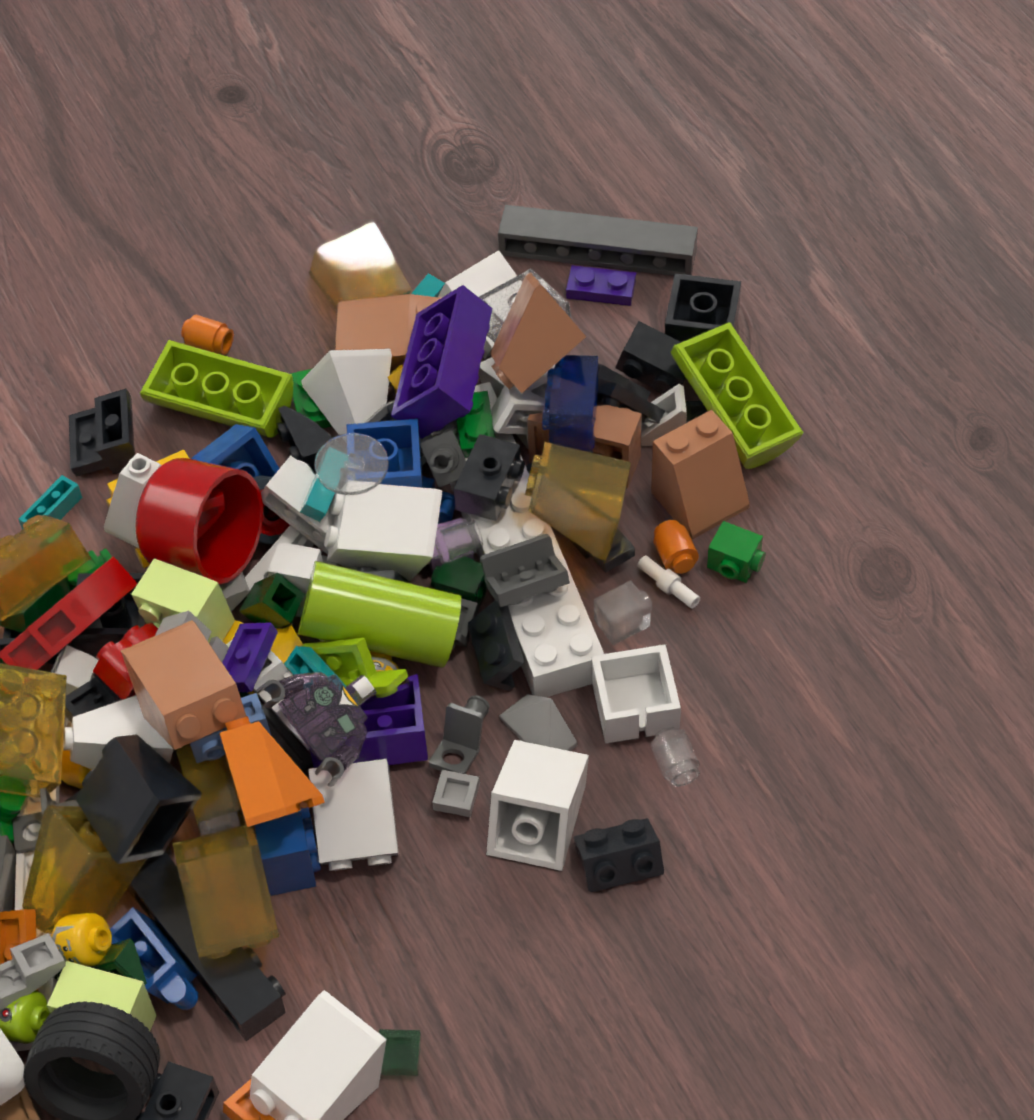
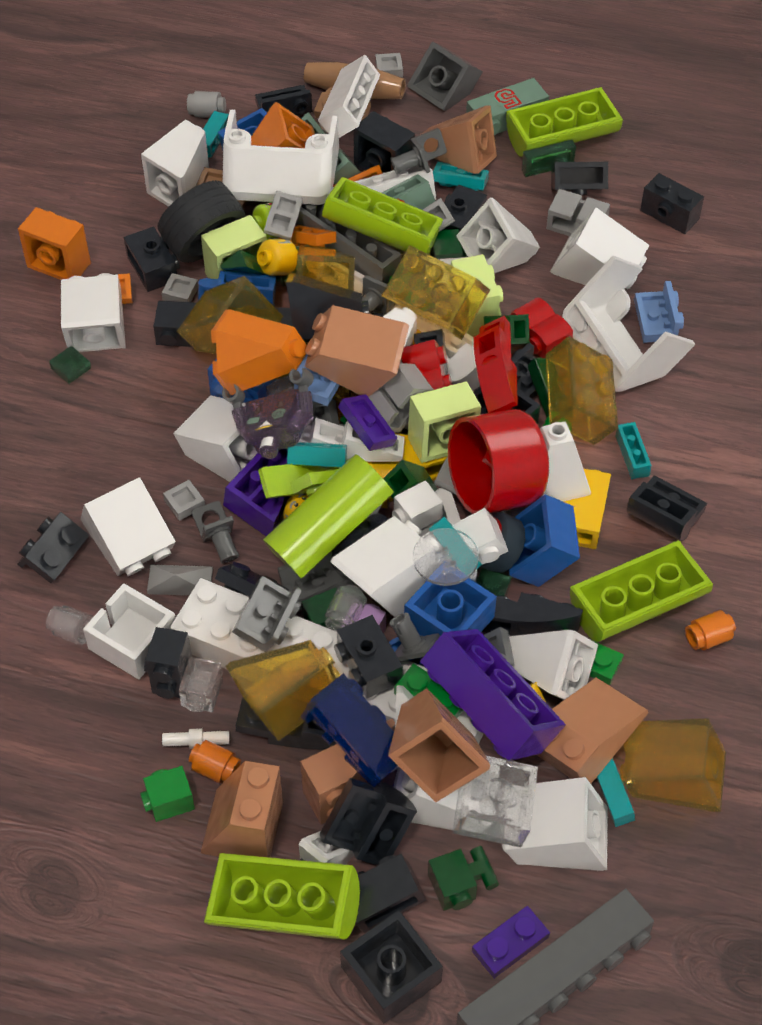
camera: 130 degrees right, 0 degrees up
(193, 1044) = (179, 288): none -> light grey plate
(601, 334) = (456, 879): none -> dark green brick
(634, 624) = (167, 661): none -> black brick

